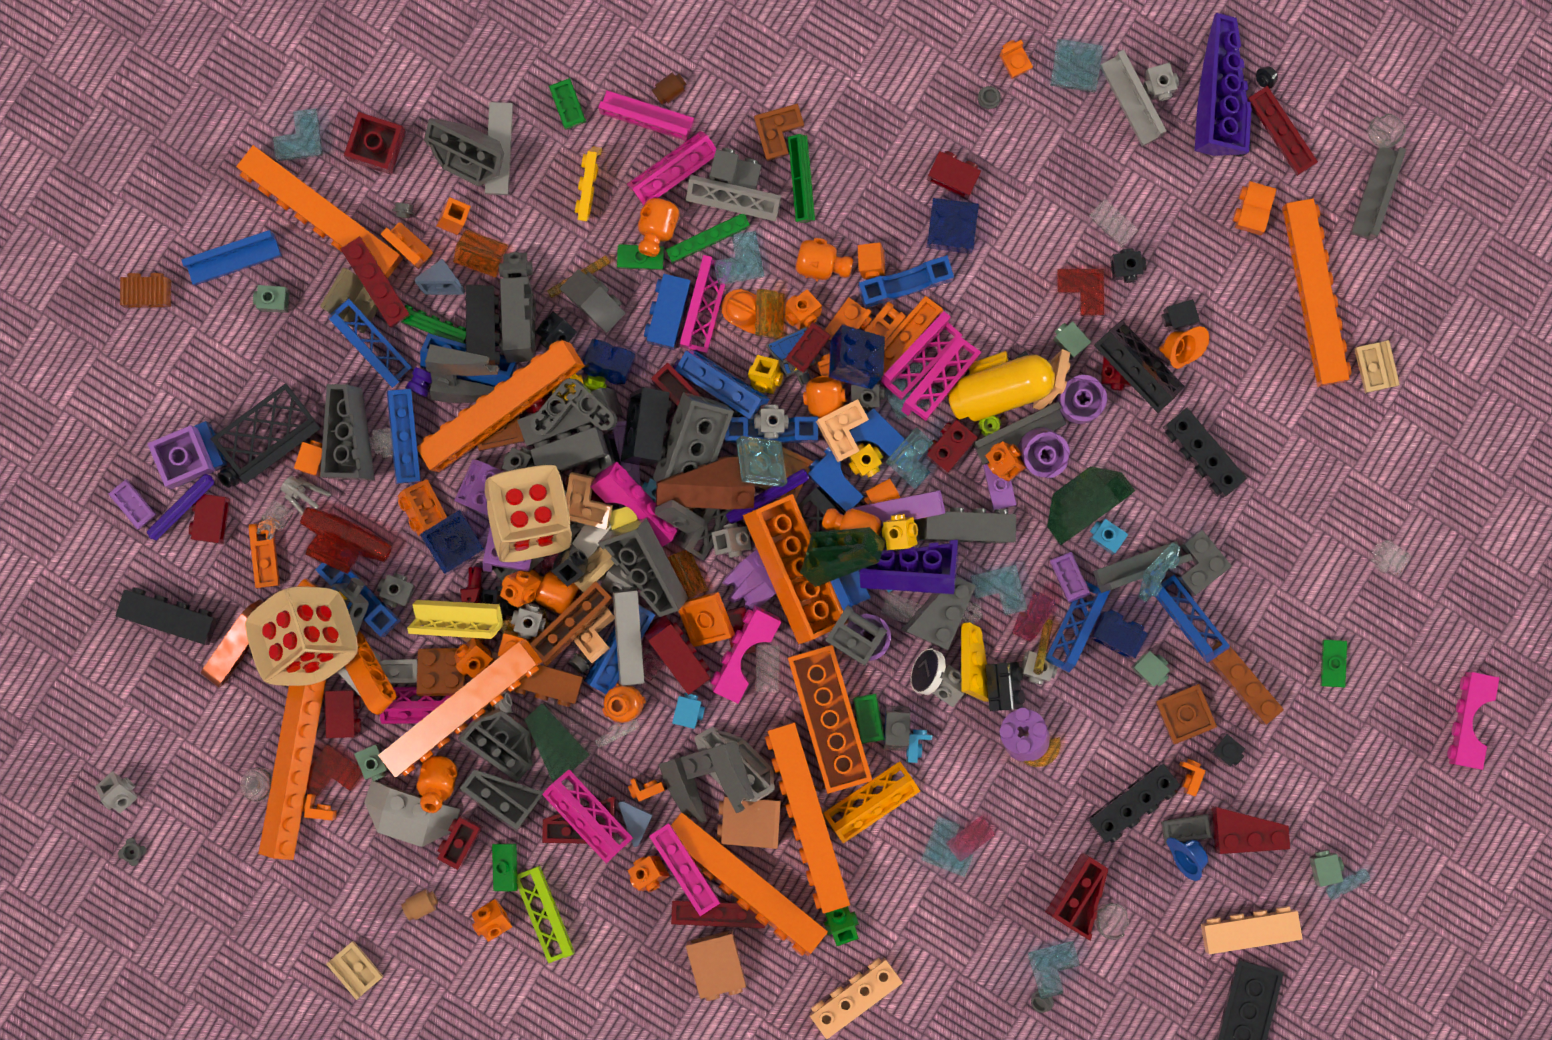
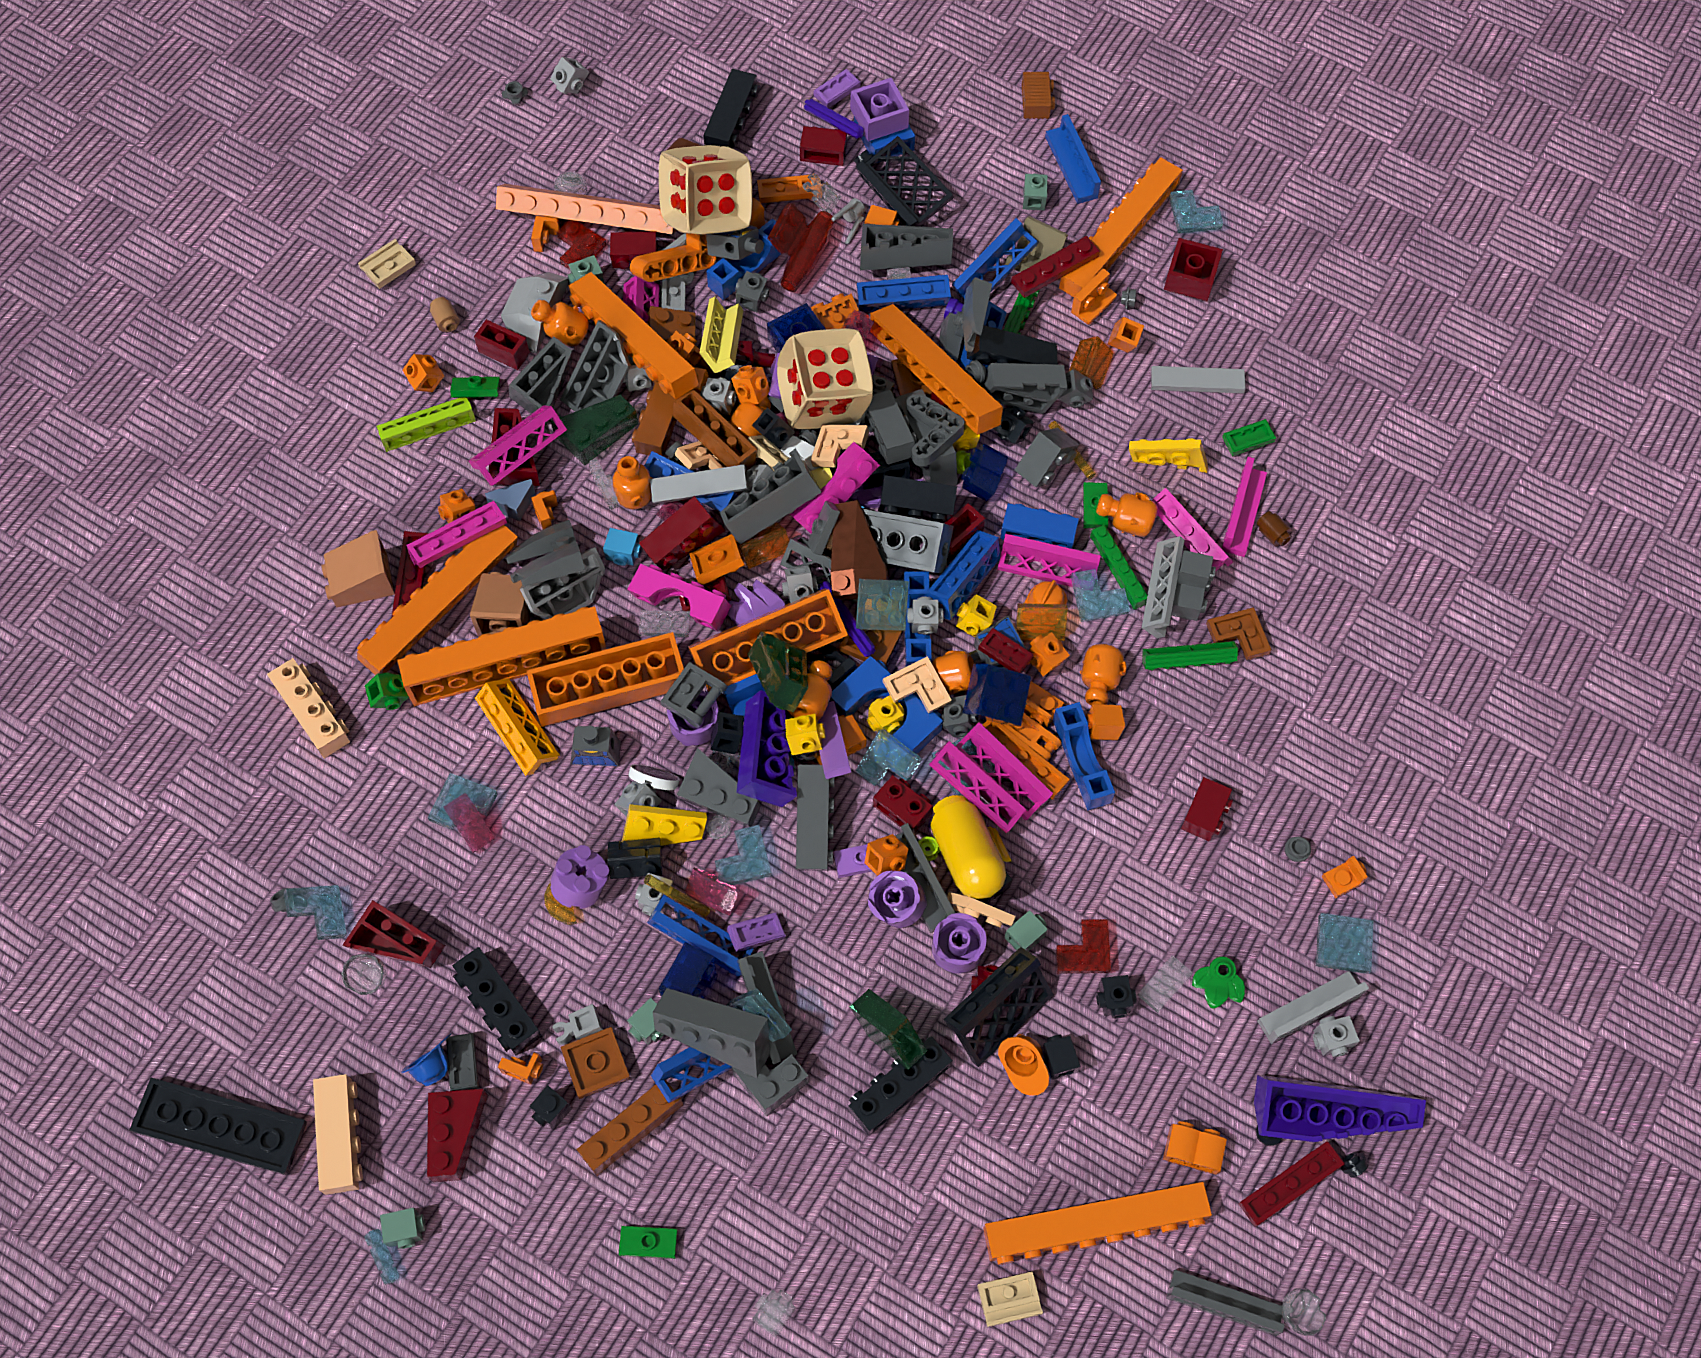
camera: 90 degrees right, 20 degrees down
(439, 281) = (1061, 325): sand blue slope -> none
(444, 485) = (859, 321): none -> clear pink brick
(464, 151) = (1194, 343): dark grey wedge -> none
(509, 365) = (976, 370): none -> dark grey plate
(868, 718) = (617, 719): green plate -> none
(888, 605) = (727, 733): none -> black brick
(915, 750) = (573, 765): dark azure bracket -> none
(952, 225) = (1149, 806): clear blue brick -> none
(1085, 501) = (843, 951): clear green wedge -> none
(1107, 535) = (802, 974): dark azure brick -> none
(1114, 176) = (1217, 986): none -> green plate
(1152, 727) = (581, 1024): none -> light grey plate
(1164, 461) = (888, 1028): none -> clear green brick
(1173, 610) = (715, 1029): none -> dark grey wedge

